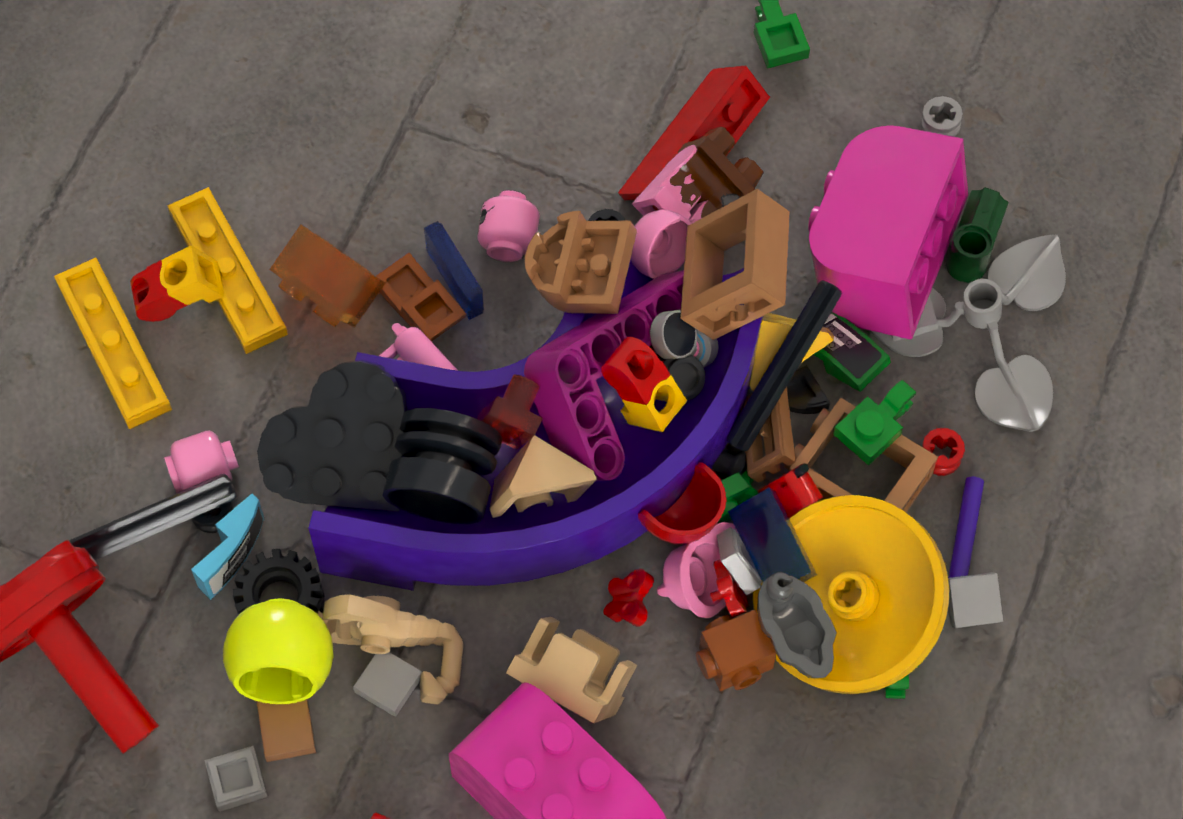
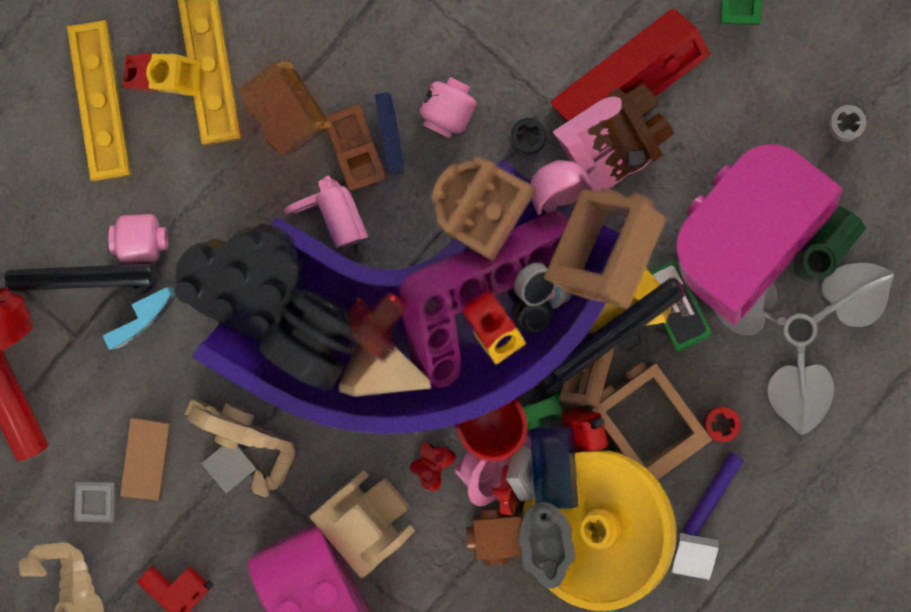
camera: 20 degrees right, 25 degrees up
(276, 569) = (143, 376): black tyre -> none
(278, 652) = (147, 432): neon yellow wheel -> none
(873, 427) = (668, 402): green plate -> none

